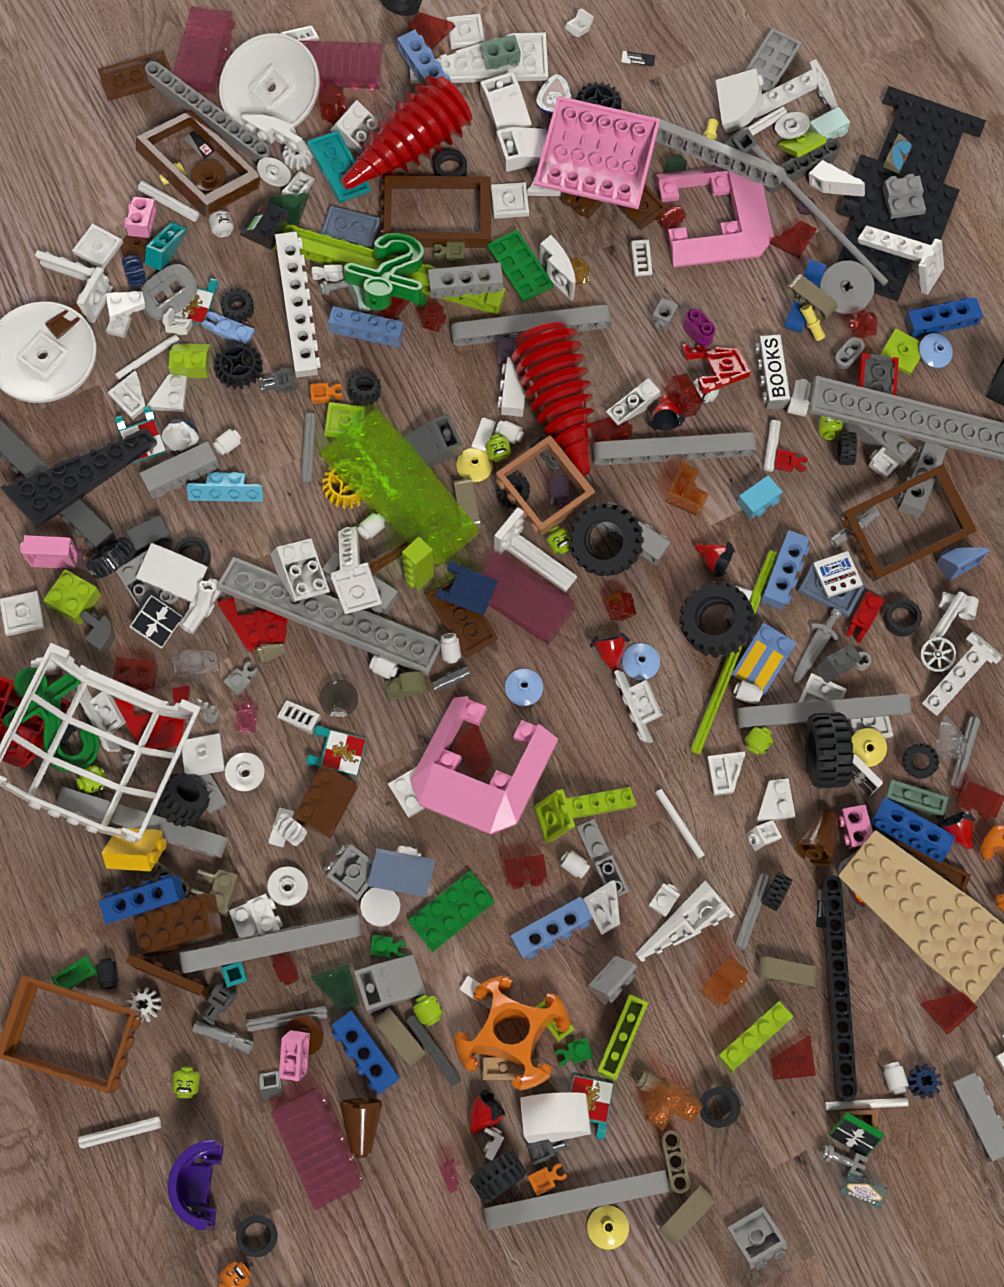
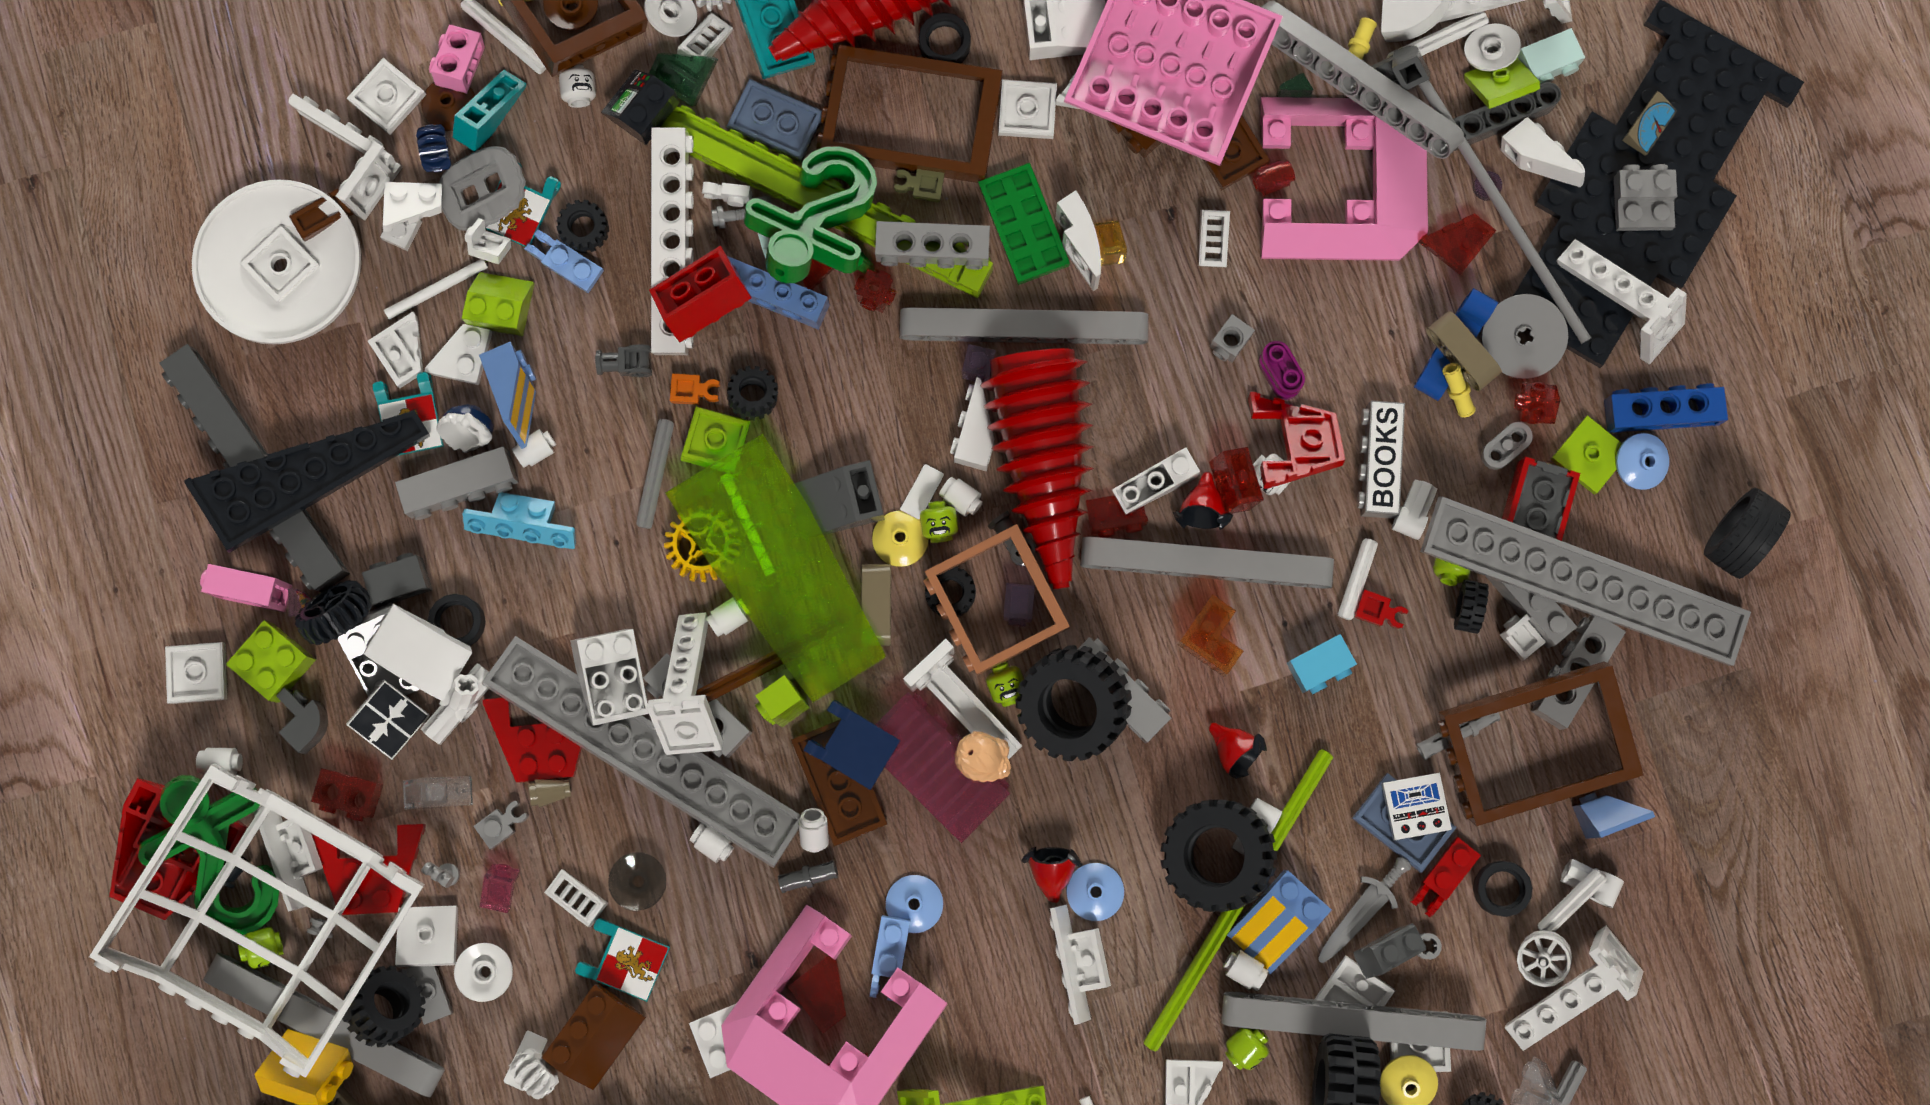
camera: 15 degrees right, 10 degrees up
(207, 403) = (512, 388): none -> medium blue slope
(240, 372) = (563, 334): black gear -> none
(322, 329) = (700, 294): none -> red slope
(406, 685) = (741, 877): olive brick -> none
(512, 717) = (889, 949): none -> light blue hinge
(555, 585) = (988, 757): none -> light nougat hair
(620, 606) = (1079, 804): clear red brick -> none
(792, 543) = (1370, 752): medium blue brick -> none

